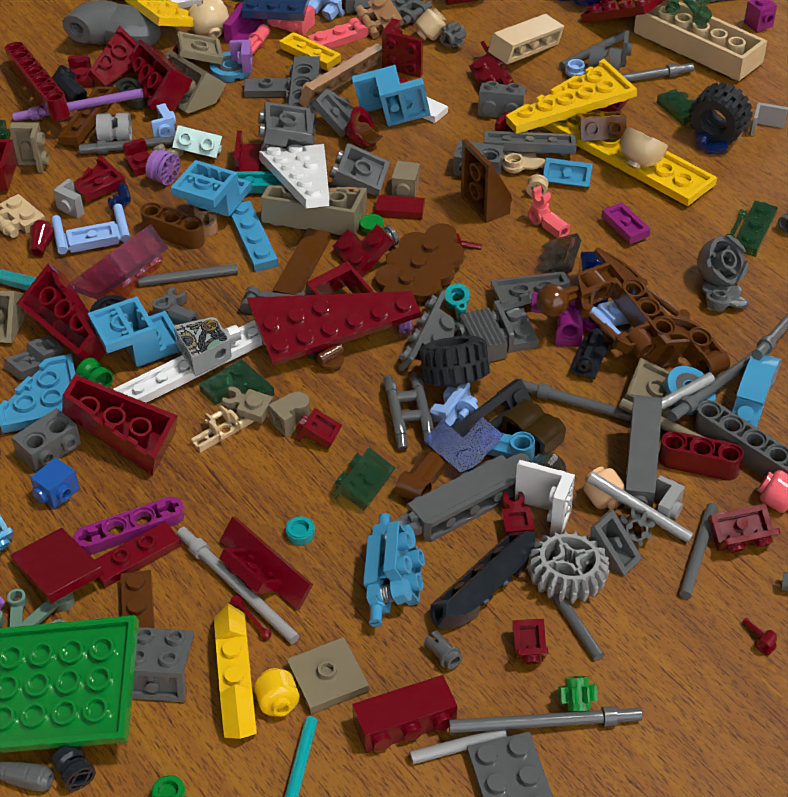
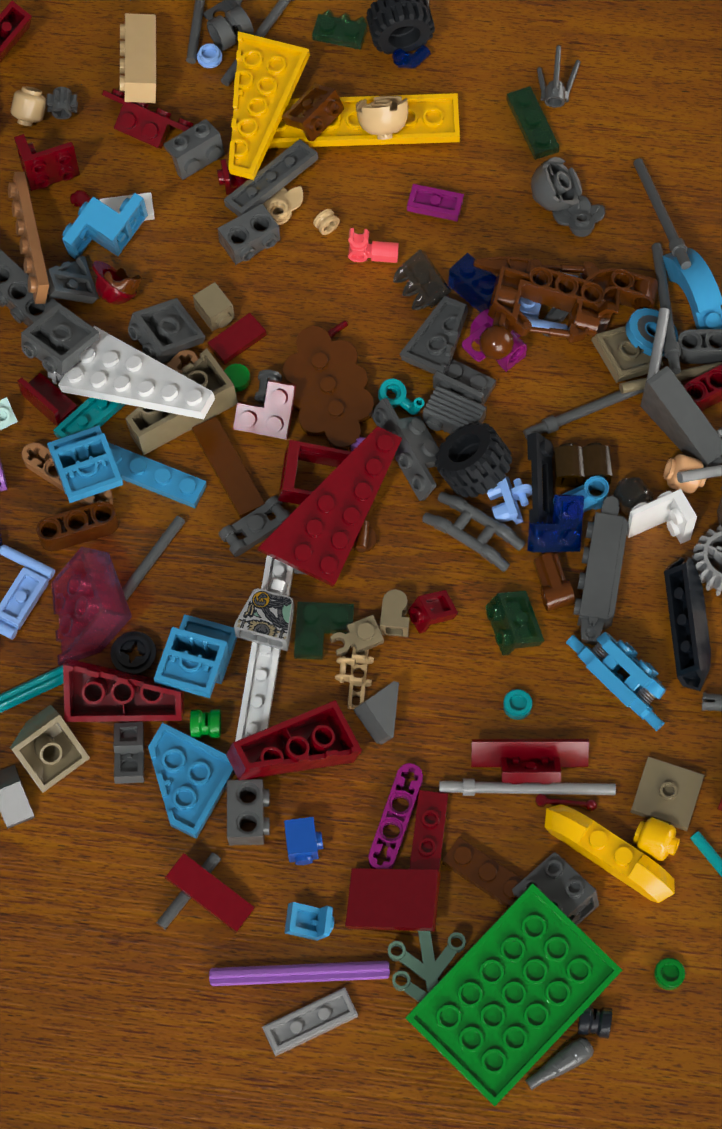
camera: 45 degrees left, 20 degrees up
(171, 304) = (174, 611): dark grey bar -> none
(203, 452) = (379, 713): none -> dark grey slope
(482, 185) = (296, 265): reddish brown slope -> none
(516, 516) = (653, 554): dark red plate -> none
(568, 172) = (333, 184): dark azure panel -> none
(590, 355) = (547, 362): black hinge -> none
(742, 214) = (522, 148): clear green hinge -> none

